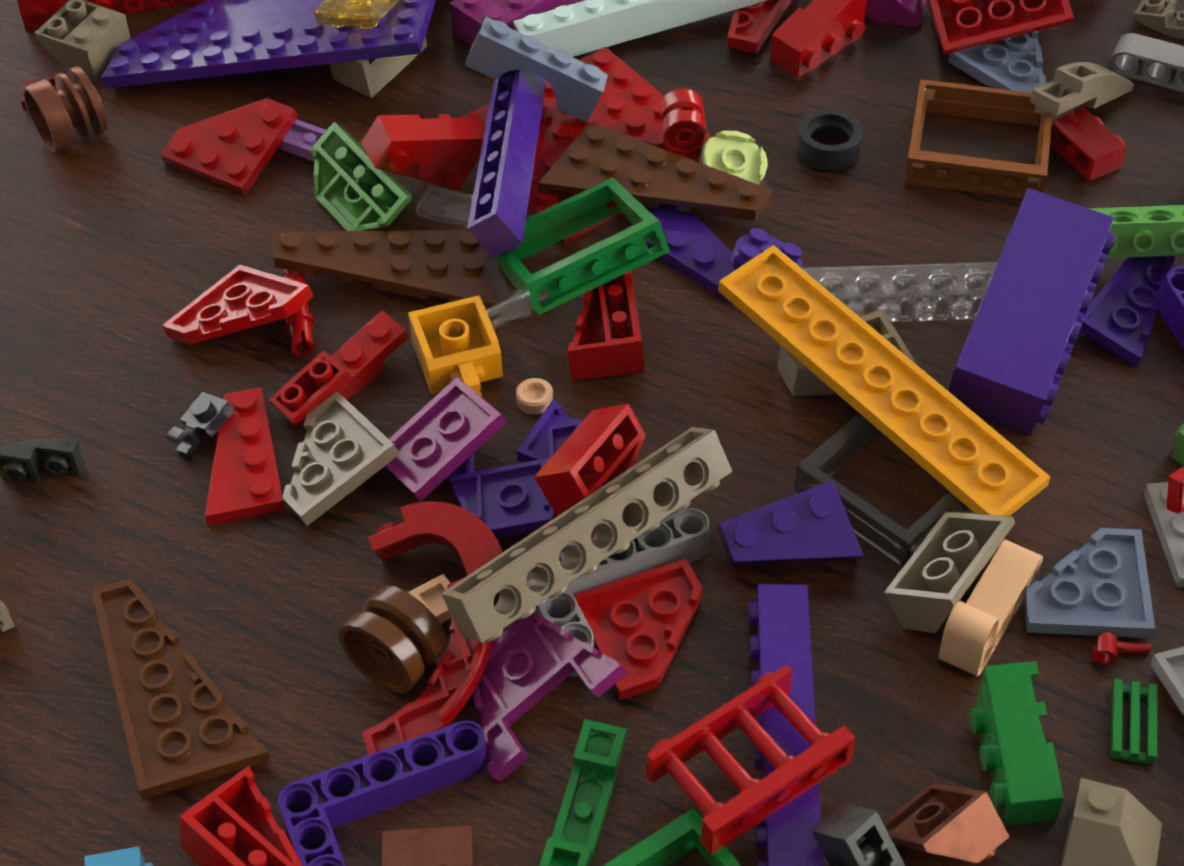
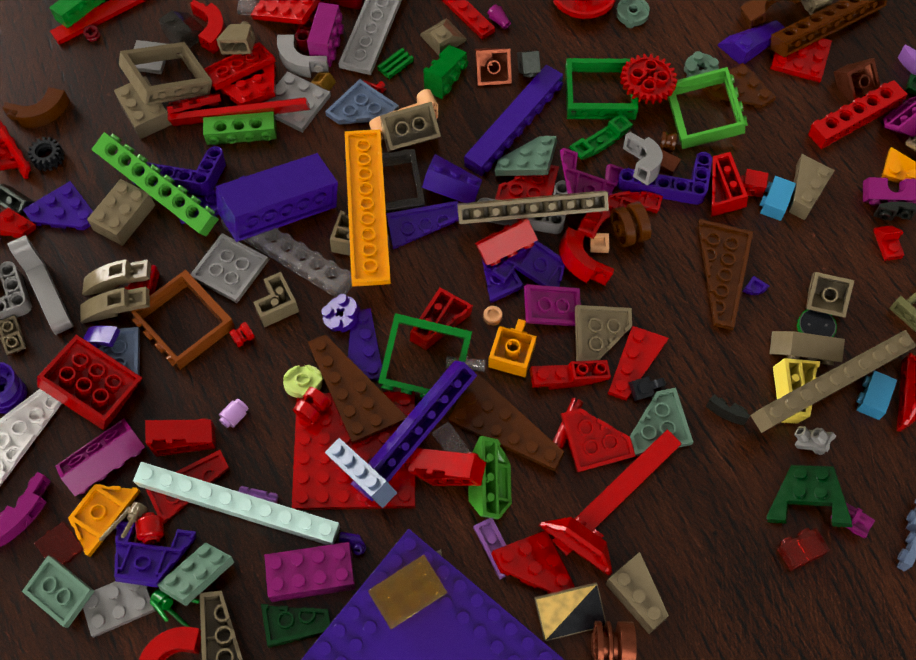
camera: 145 degrees left, 15 degrees up
(64, 180) = (638, 593): none -> dark tan wedge
(85, 703) = (755, 286): none -> dark purple tile
(143, 387) = (661, 414): none -> sand green plate
(149, 125) = (569, 611): none -> tile
(159, 276) = (626, 483): none -> red tile
(181, 172) = (581, 540): none -> red wedge
(436, 790) = (649, 154): none -> light grey arch
(661, 40) = (272, 497): none -> medium lavender axle
(687, 667) = (529, 159): none -> sand green plate
(757, 797) = (540, 89): red fence -> none
(774, 458) = (418, 222): none -> dark purple wing
(785, 86) = (233, 413): none -> lavender brick
(829, 156) = (241, 353): black tyre -> none
(873, 219) = (279, 302): none -> dark tan brick
(878, 165) = (237, 336): none -> red wheel
(978, 221) = (229, 268): none -> light grey plate
(1047, 57) = (102, 335): none -> slope
(1121, 110) = (115, 274): none -> dark tan slope

